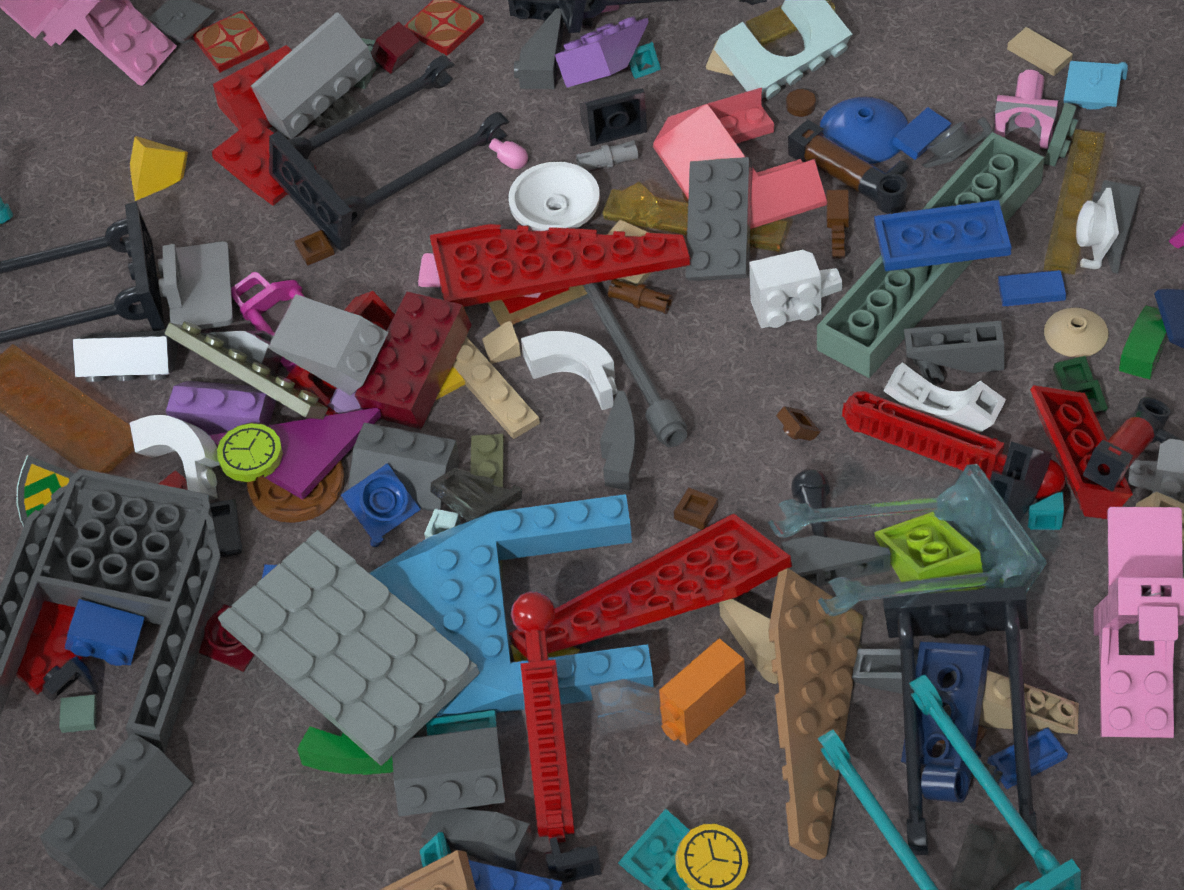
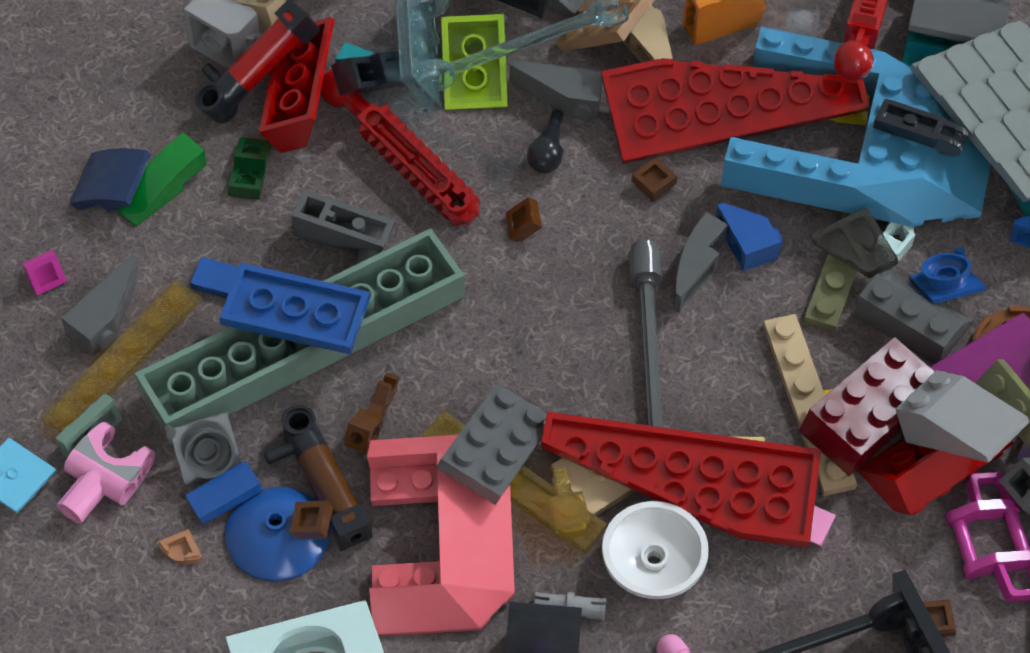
camera: 165 degrees left, 5 degrees up
(446, 584) = (921, 127): none -> black hinge
(502, 343) = (771, 417): tan slope -> none
(572, 353) = (706, 371): white arch -> none
(579, 478) = (749, 236): none -> blue slope
(640, 296) = (599, 408): reddish brown pin -> none
(789, 288) = (463, 339): white hinge -> none
(800, 102) = (324, 593): reddish brown tile -> none
(835, 117) = (311, 520): none -> reddish brown plate
(930, 95) = (180, 548): none -> nougat tile
(970, 409) = (379, 177): white arch -> none
(1039, 51) = (32, 555): tan tile -> none
(1072, 340) = (218, 236): tan dish -> none
(1097, 228) = (133, 287): white hat -> none

